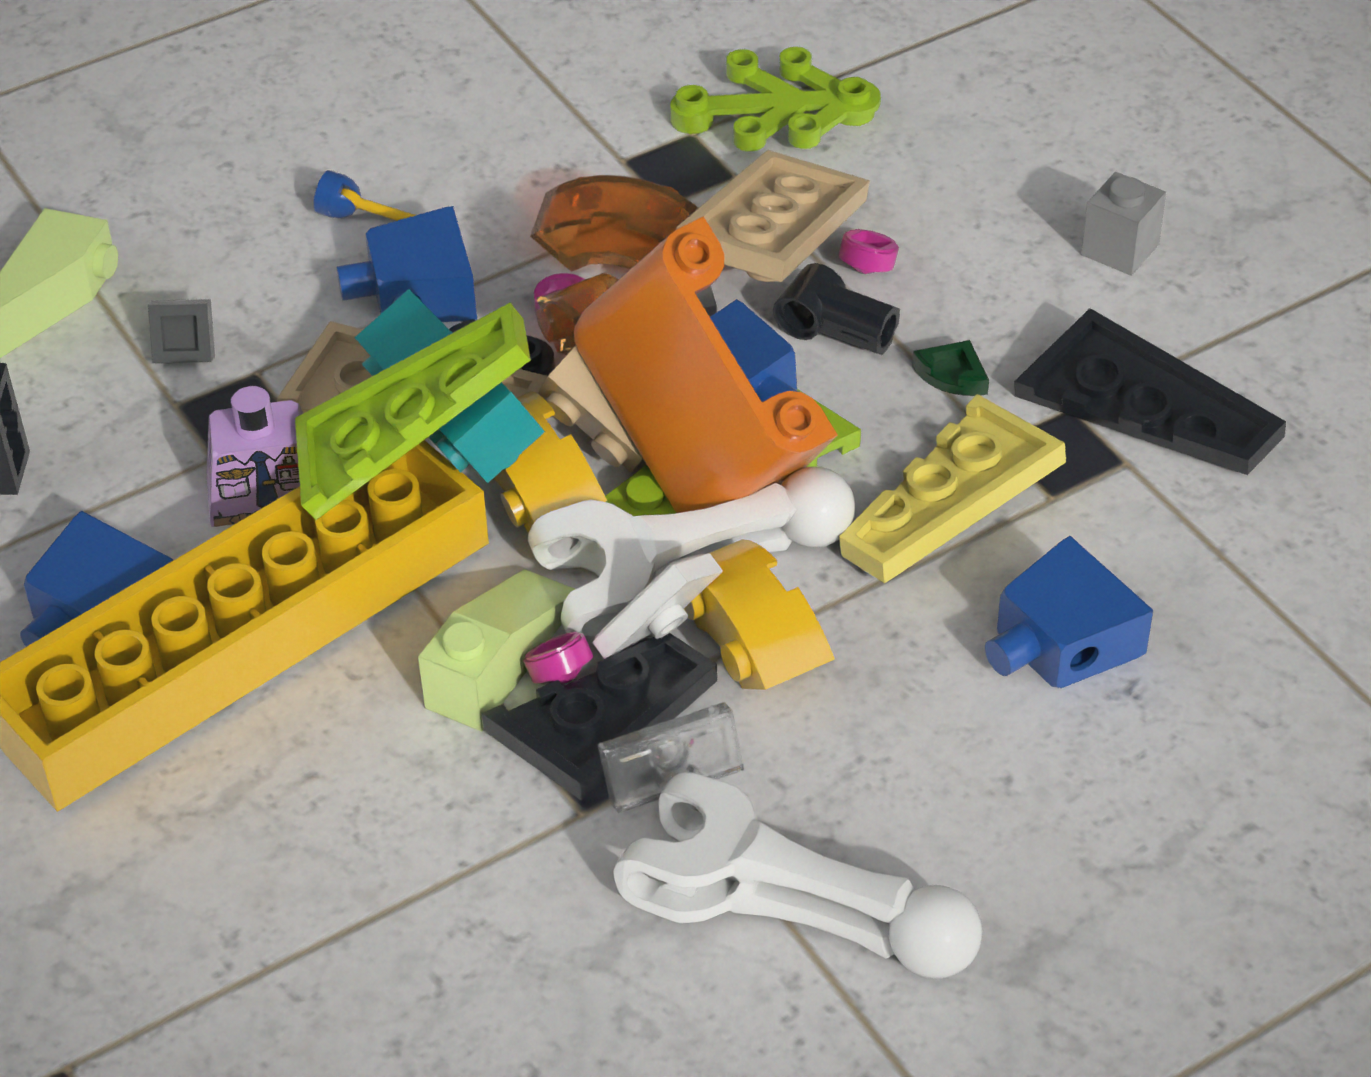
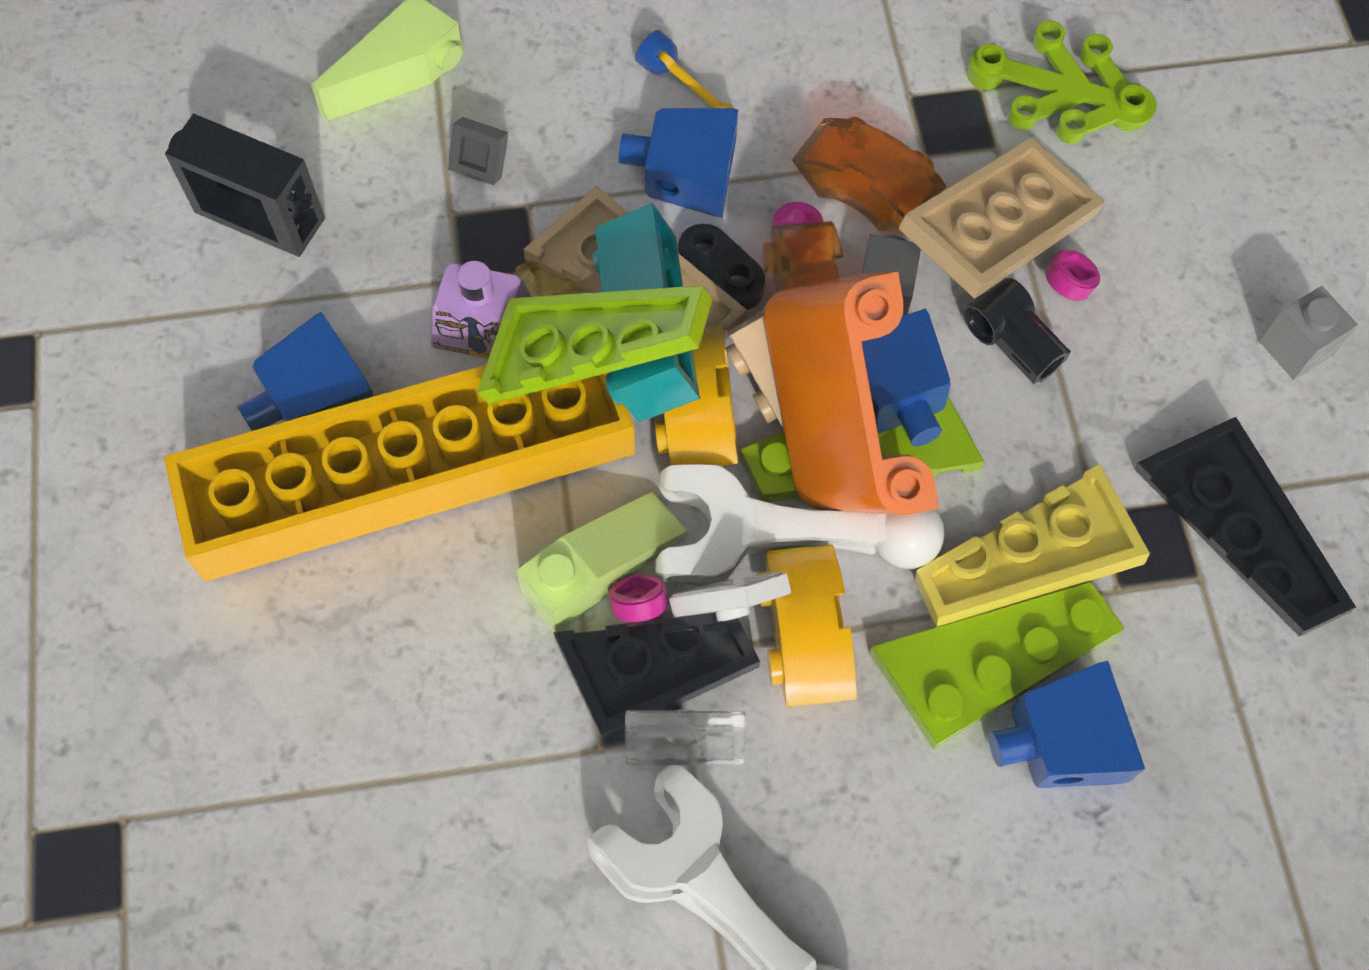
camera: 20 degrees right, 20 degrees up
(949, 598) = (985, 661): none -> lime wing
(952, 369) = (1092, 423): dark green tile -> none

